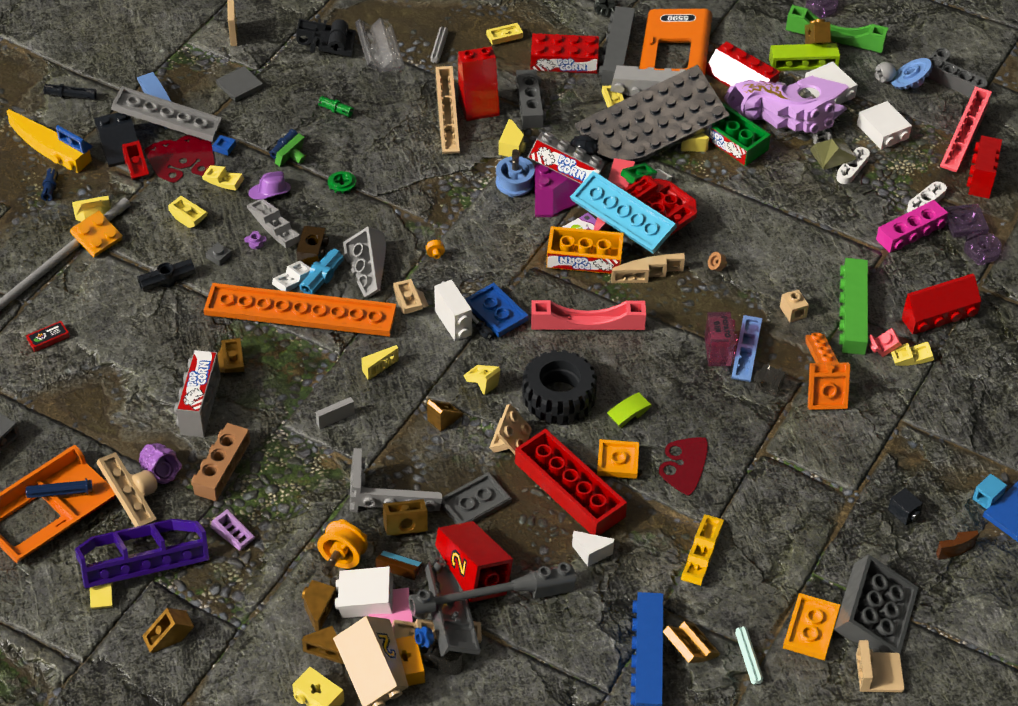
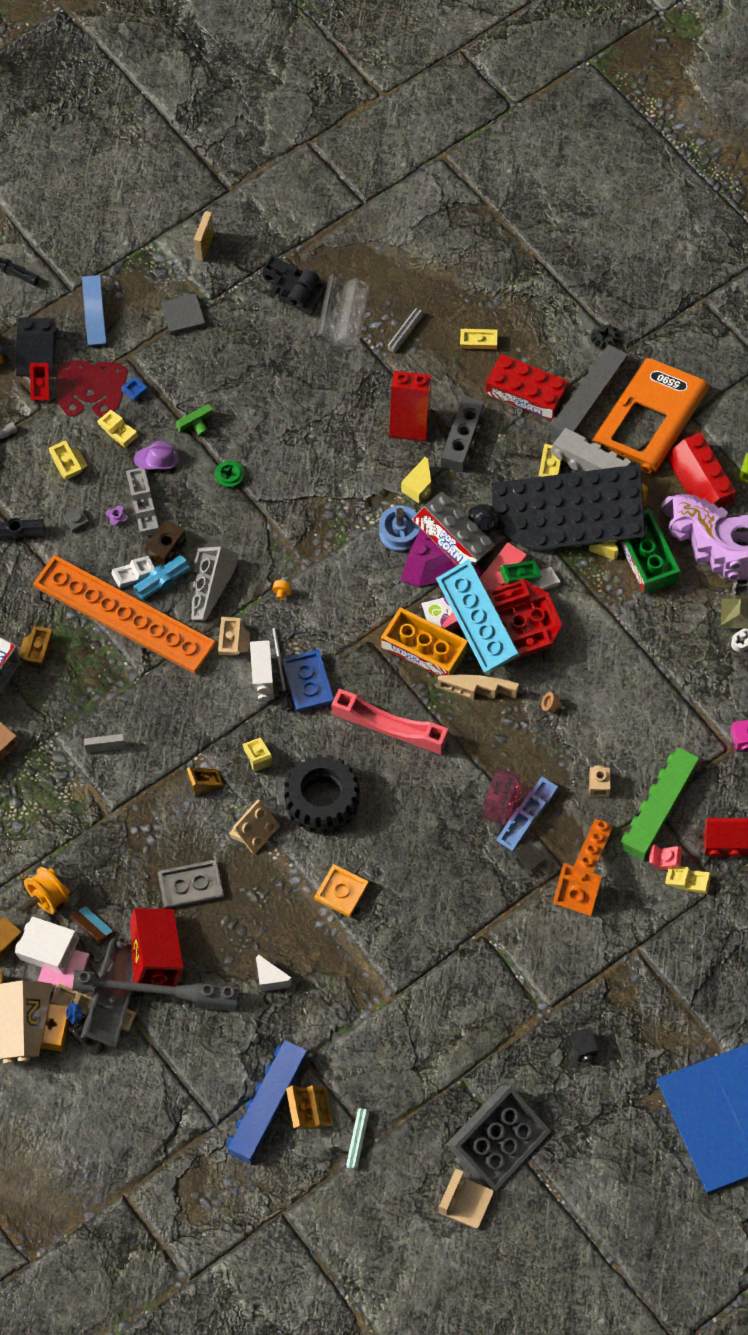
camera: 25 degrees right, 15 degrees up
(166, 113) = (90, 335): light grey plate -> none
(282, 142) = (193, 406): dark blue pin -> none
(336, 106) = (264, 376): green pin -> none
(377, 497) = (108, 856): light grey bracket -> none
(379, 361) = (168, 701): light yellow slope -> none
(405, 517) = (115, 881): pearl gold brick -> none
(447, 110) = (370, 423): tan slope -> none
(570, 483) = (281, 902): red brick -> none
(627, 409) = (379, 839): lime slope -> none
(688, 474) = (415, 914): dark red piece -> none
(702, 549) = (371, 1015): yellow slope -> none
(811, 626) = (428, 1132): light orange plate -> none
(951, 548) = (617, 1104): reddish brown slope -> none
(989, 491) = (674, 1059): dark azure brick -> none

